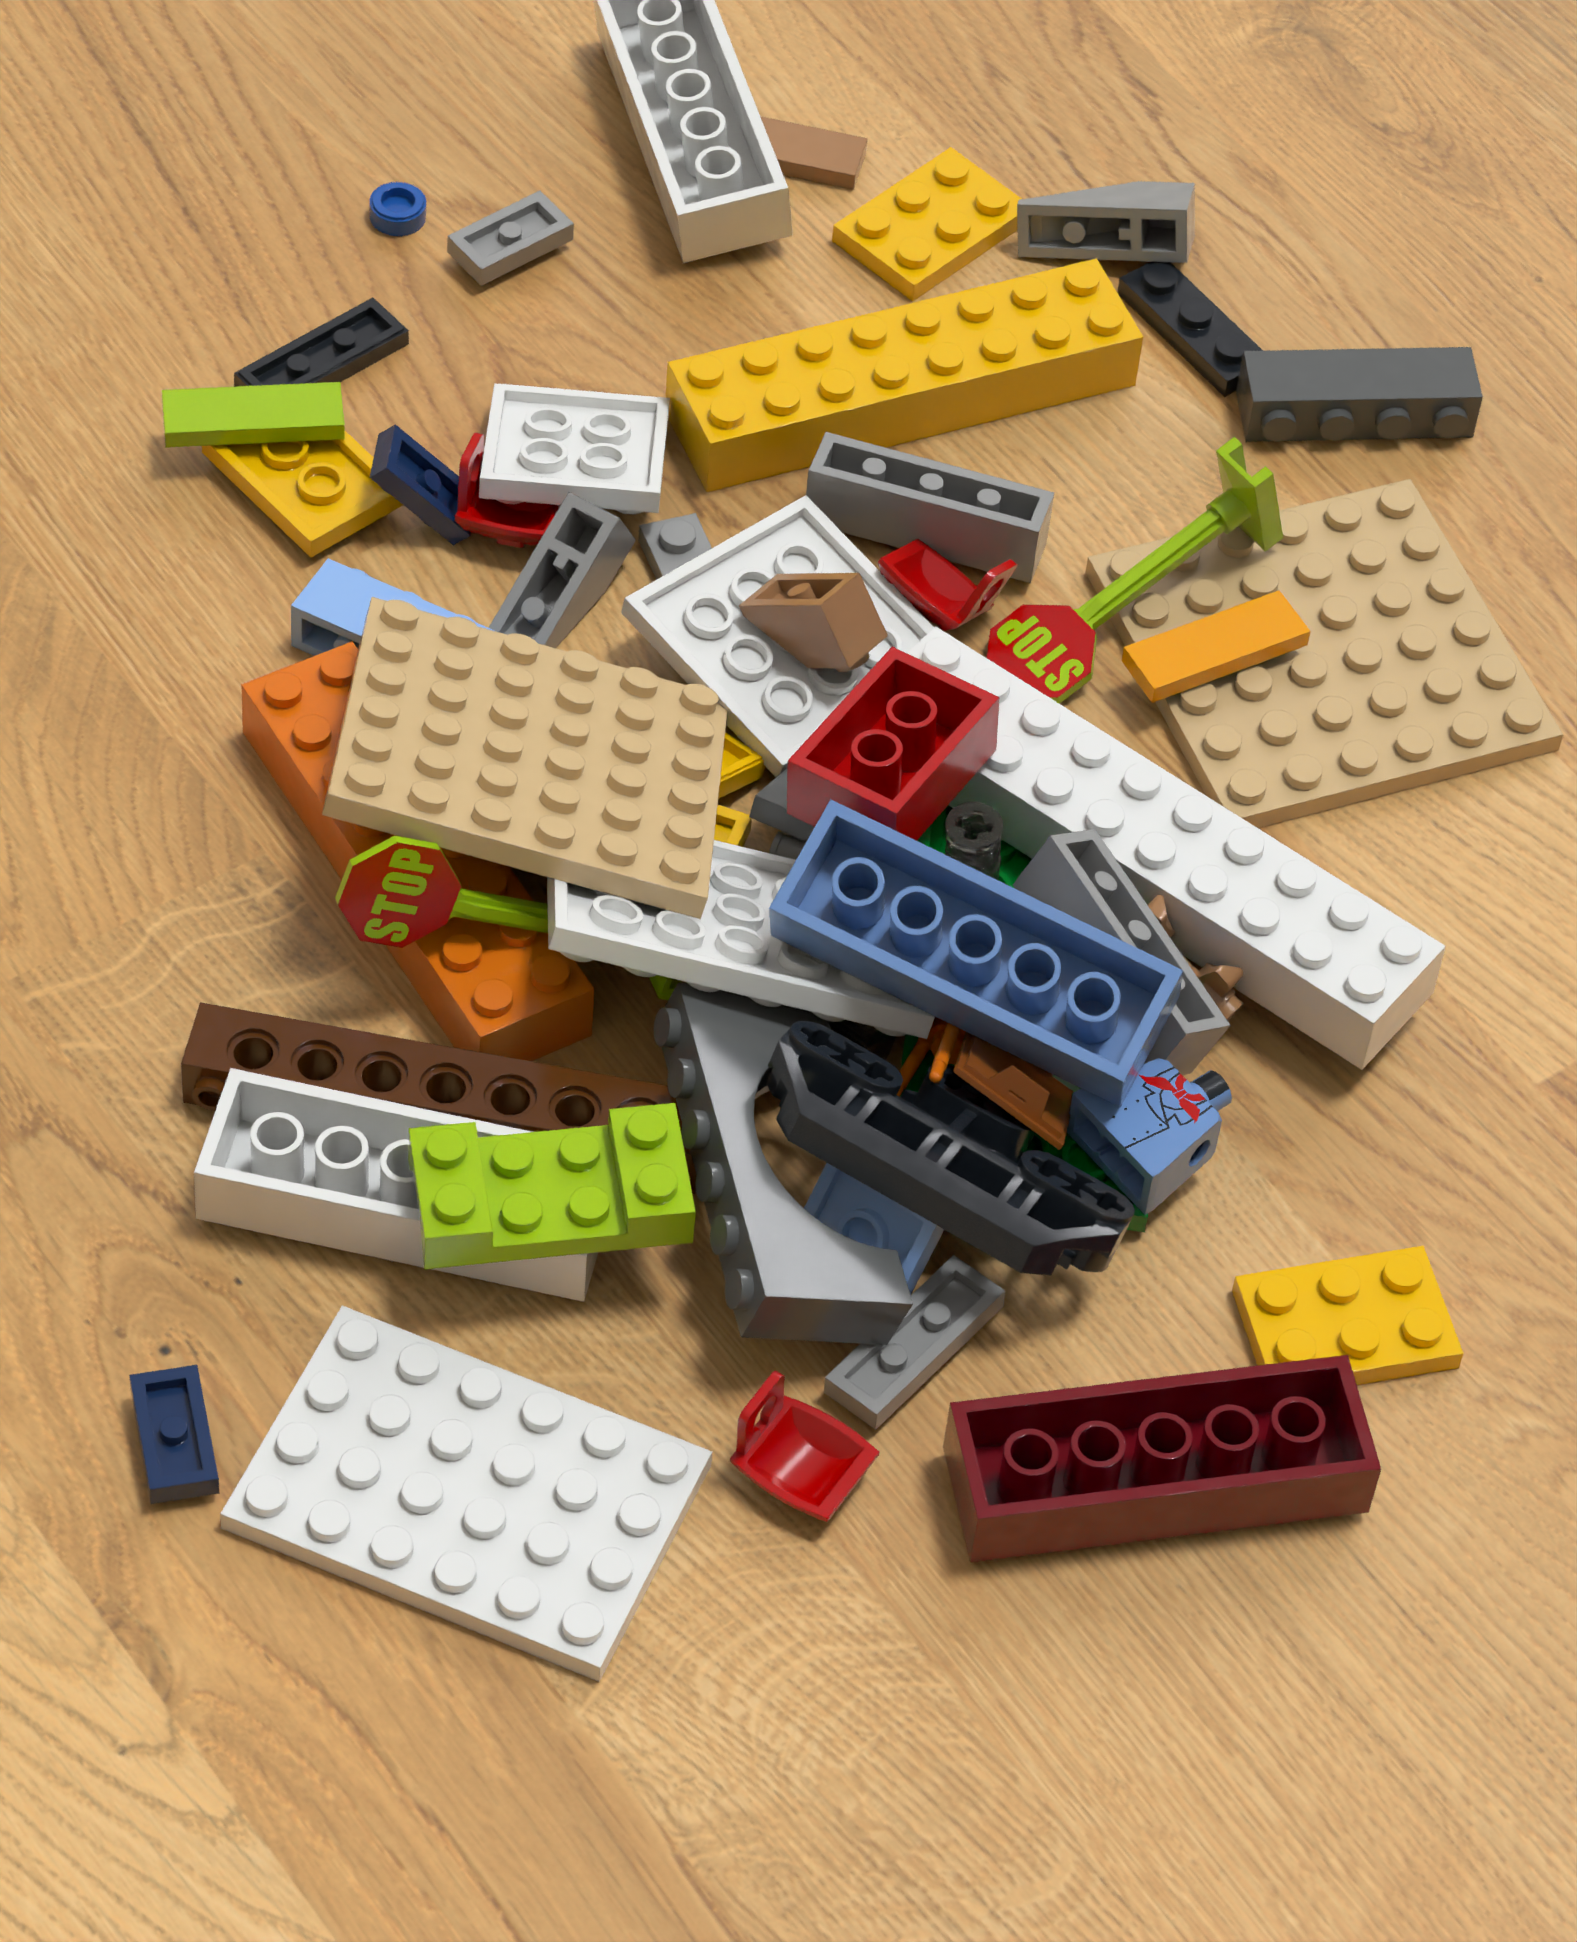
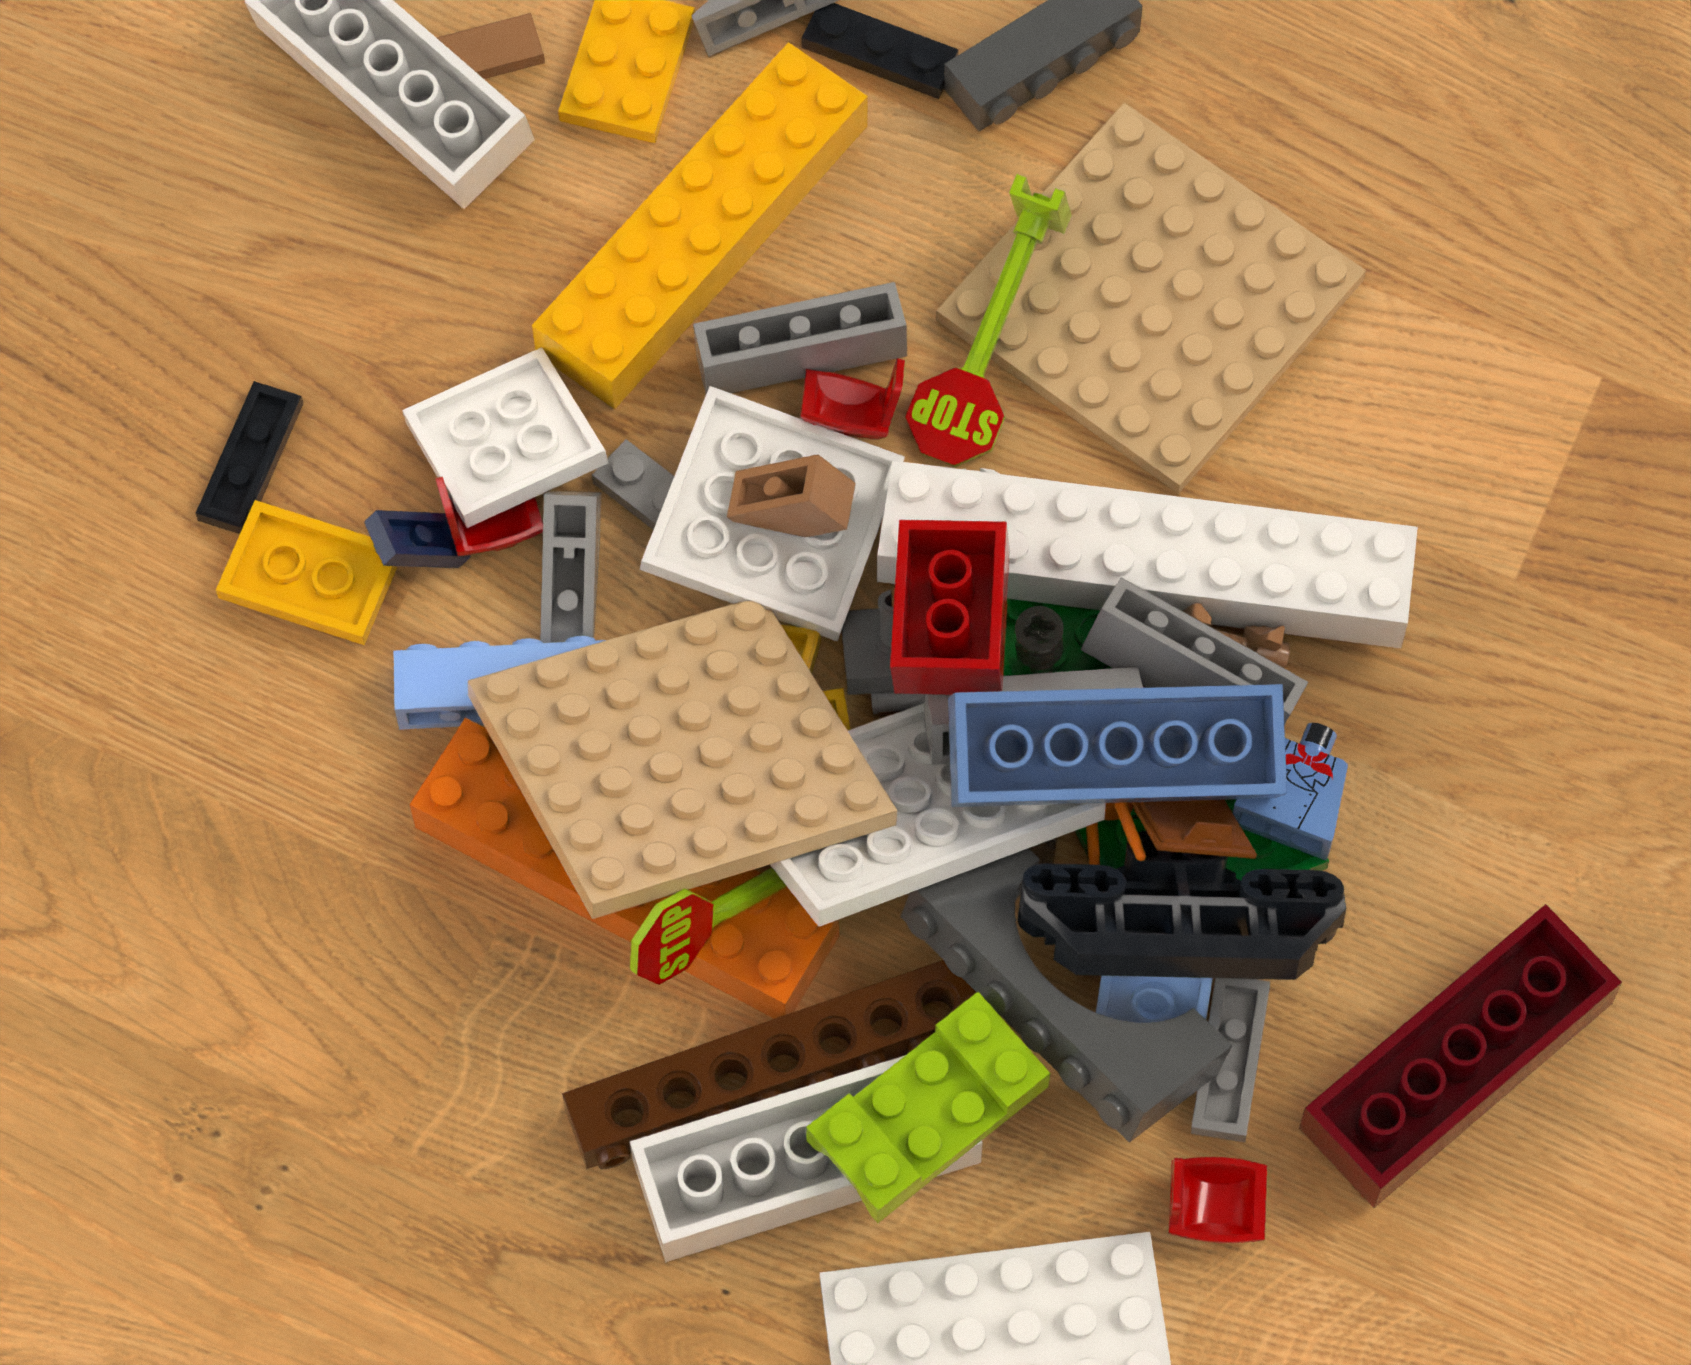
camera: 25 degrees left, 15 degrees up
(253, 414) = (245, 550): lime tile -> none
(397, 209) = (213, 284): blue tile -> none
(510, 237) = (322, 264): light grey plate -> none
(1215, 646) = (1084, 343): light orange tile -> none
(1369, 1306) = (1507, 859): yellow plate -> none

